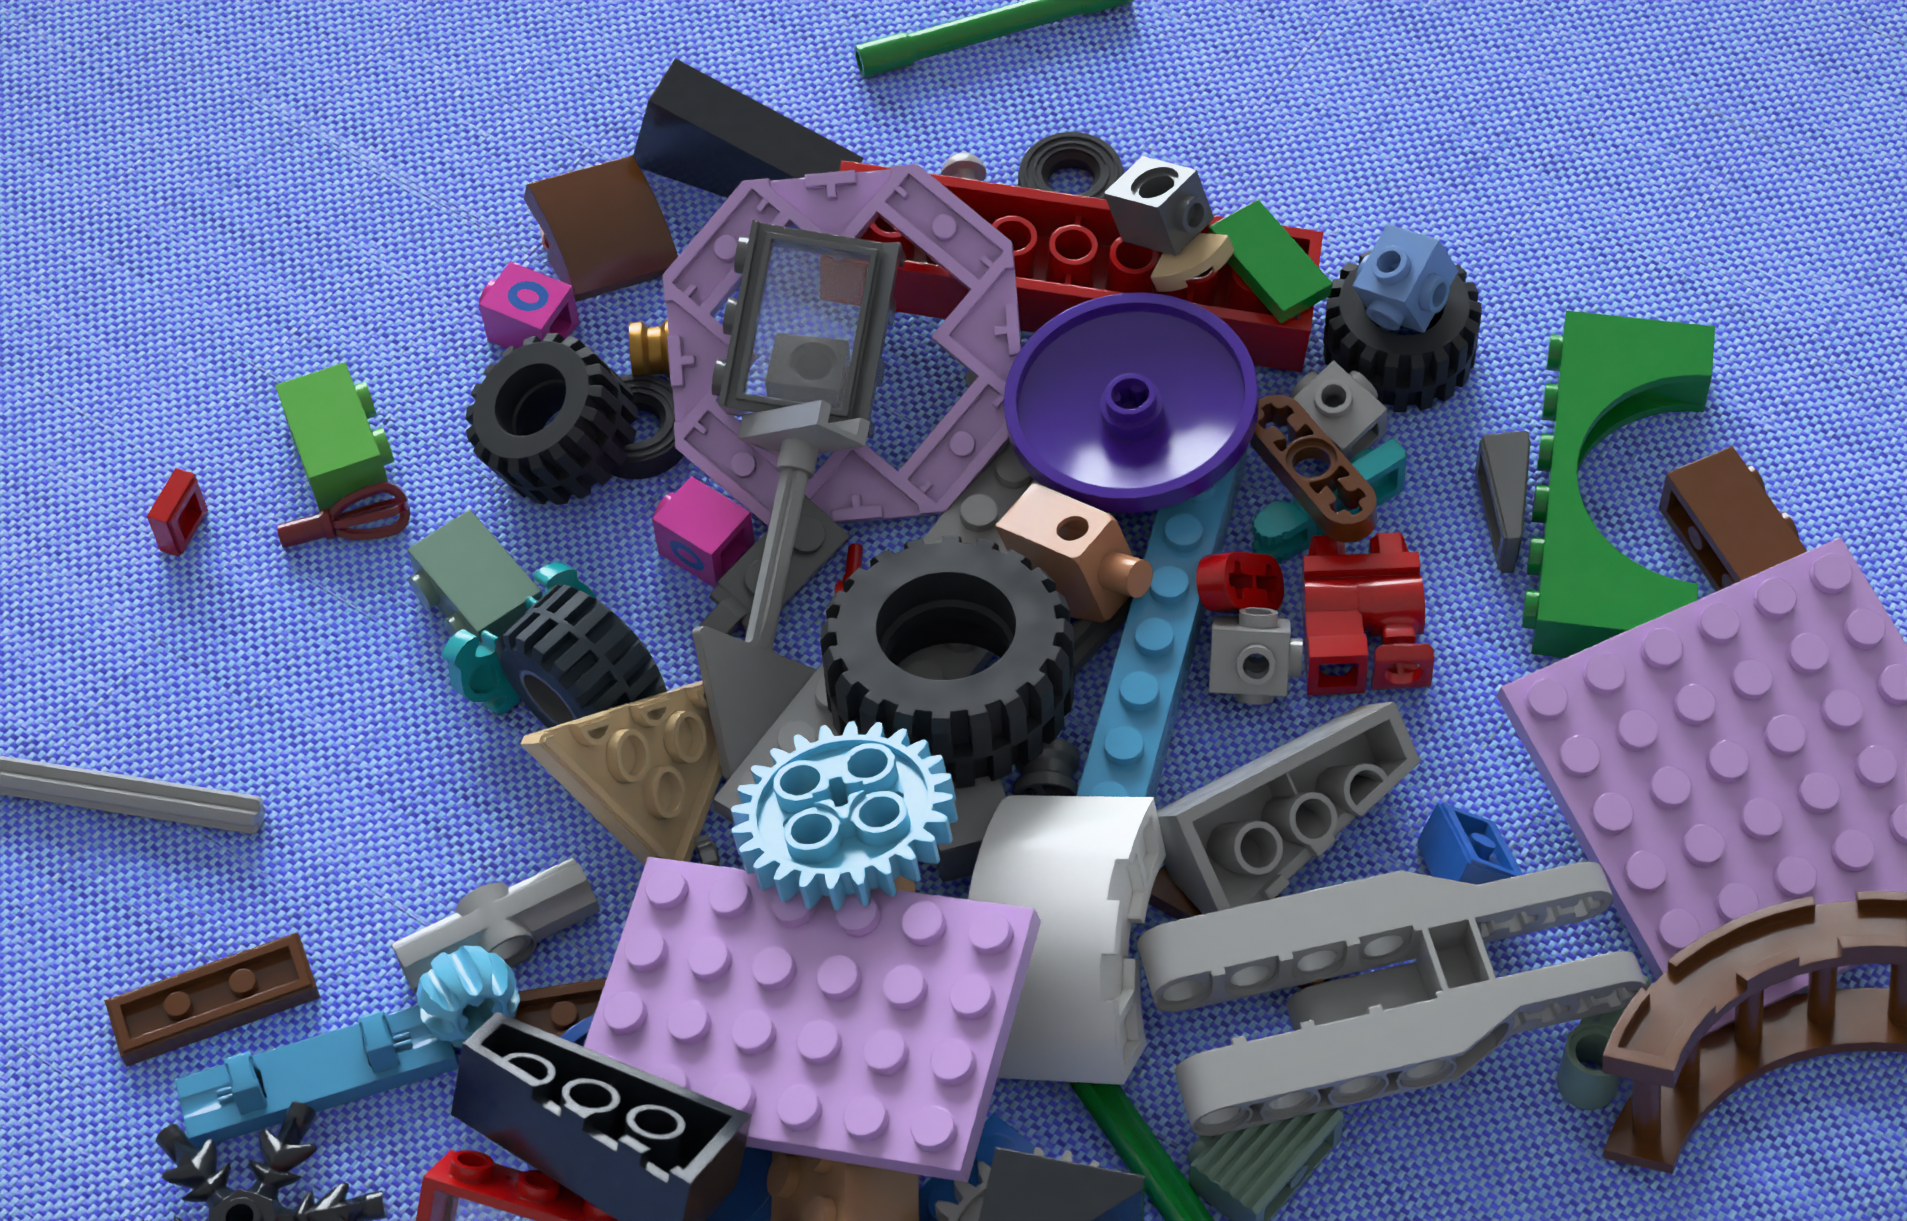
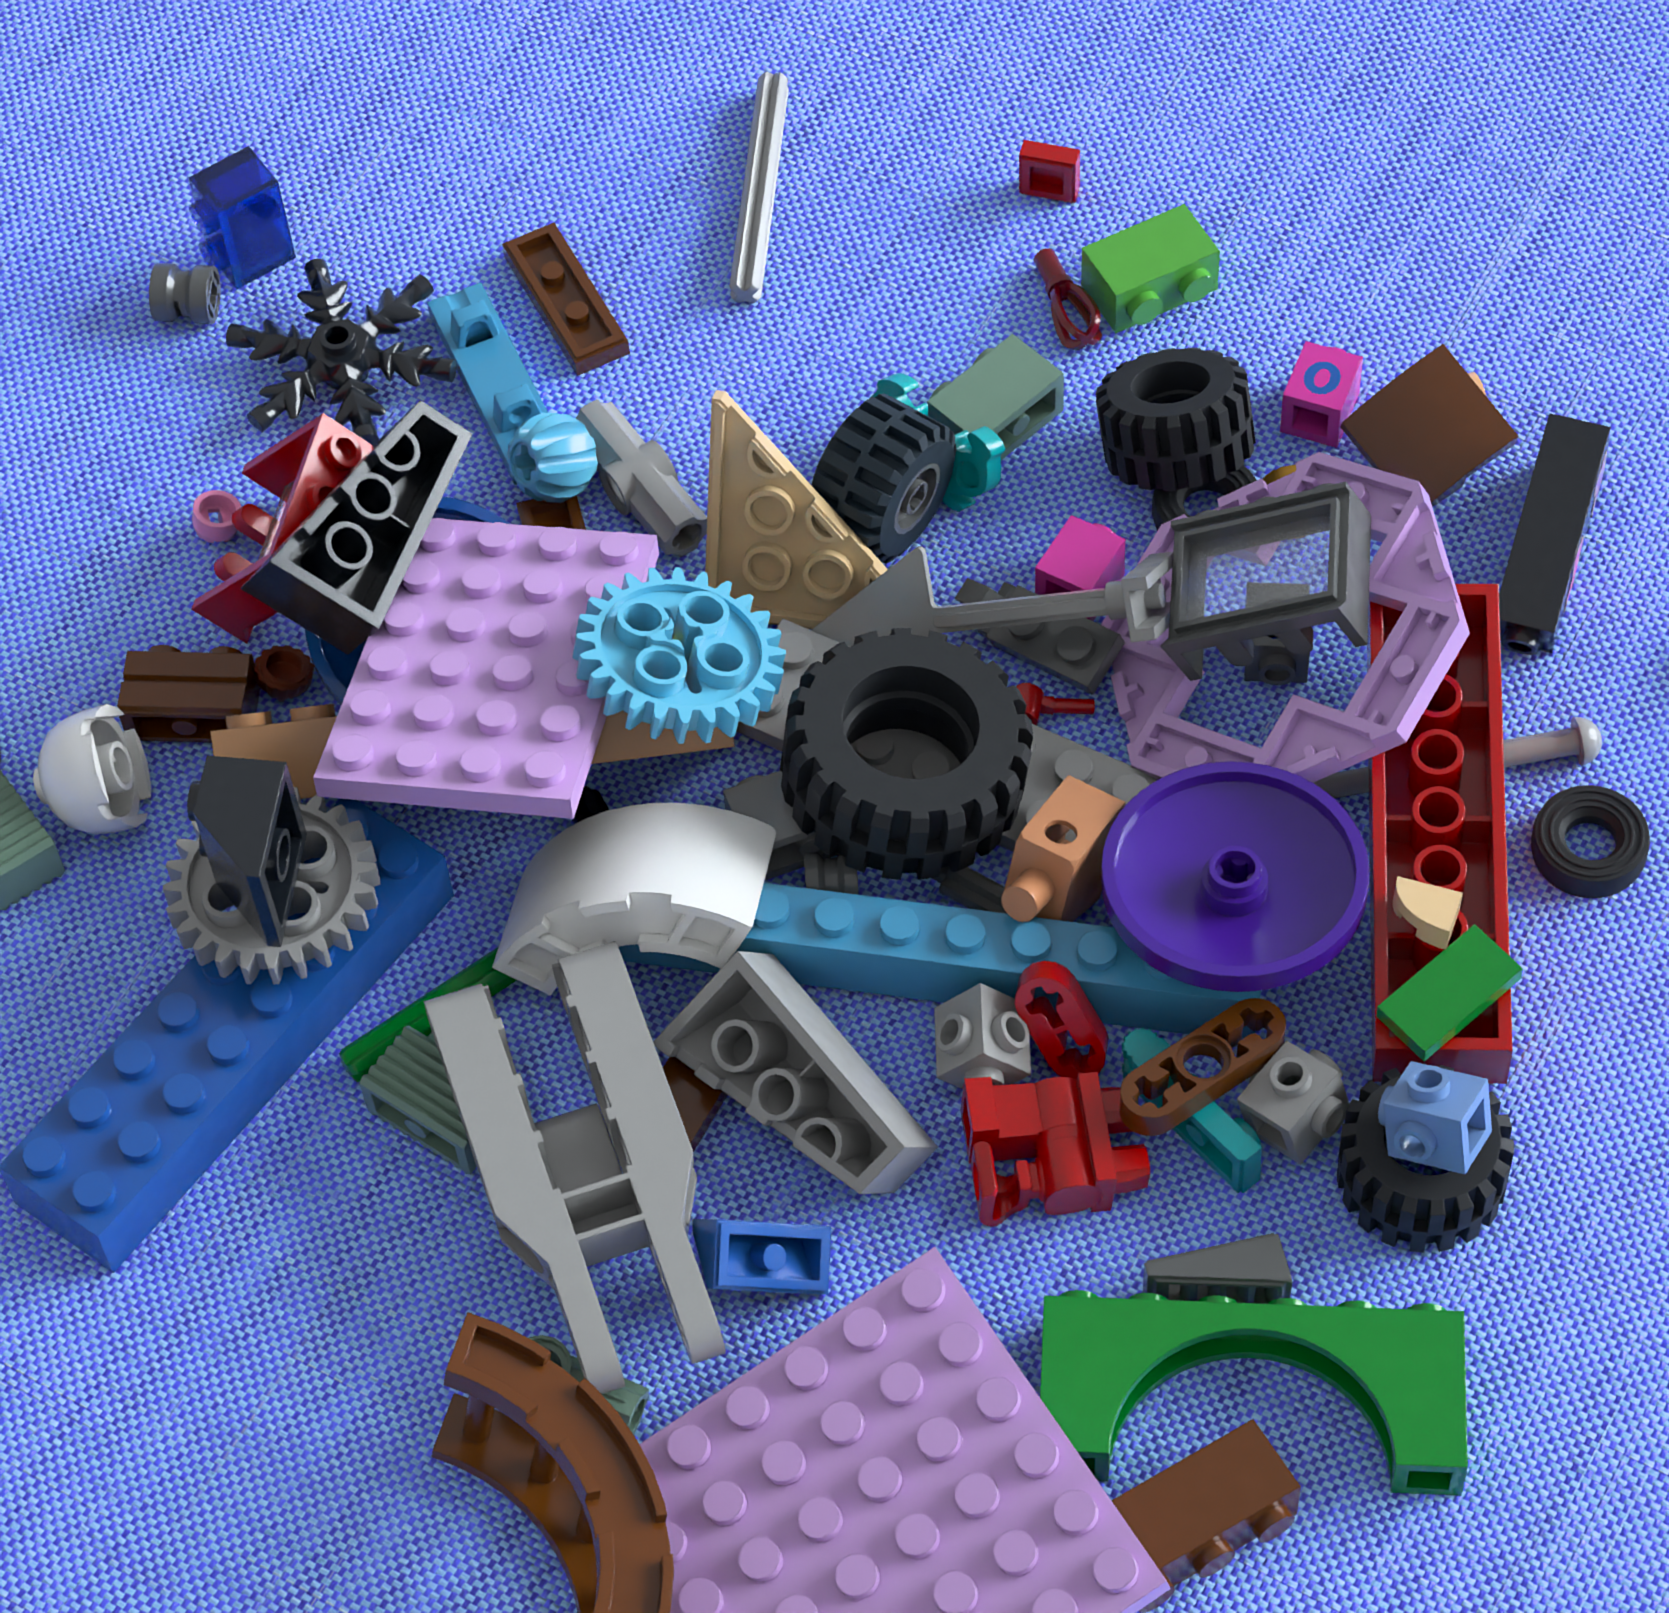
camera: 85 degrees right, 0 degrees up
(1159, 205) = (1475, 863): dark grey brick -> none

